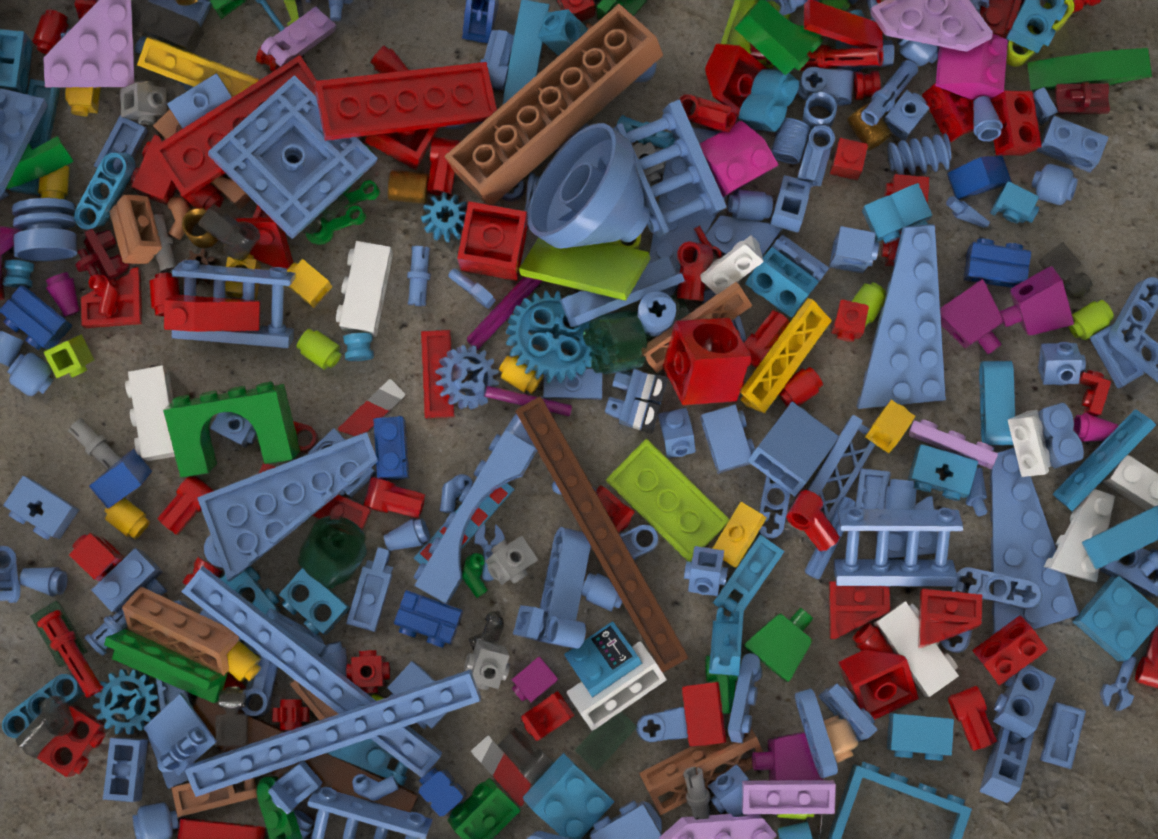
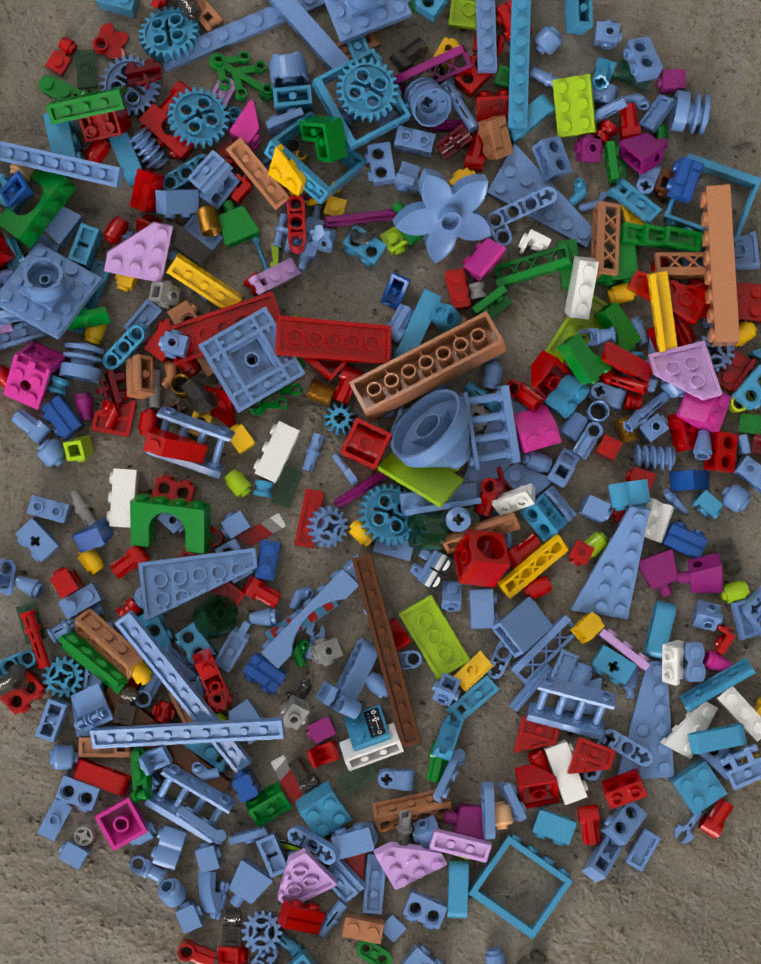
camera: 15 degrees right, 5 degrees up
(47, 457) = (50, 509): none -> medium blue brick
(173, 163) = (179, 349): none -> medium blue brick
(199, 100) = (201, 304): medium blue plate -> none
(227, 376) = (175, 488): none -> red brick
(329, 410) = (234, 524): none -> medium blue brick
(344, 634) = (209, 672): none -> red slope
(387, 61) = (329, 309): red cone -> none
(393, 337) = (287, 487): none -> clear green plate
(522, 399) = (362, 551): magenta bar -> none
(652, 98) = (492, 375): none -> medium blue brick
(703, 714) = (421, 779): red slope -> none
(782, 643) = (482, 746): green torso -> none
(807, 516) = (519, 673): red piece -> none
(950, 244) = (658, 520): none -> white bracket

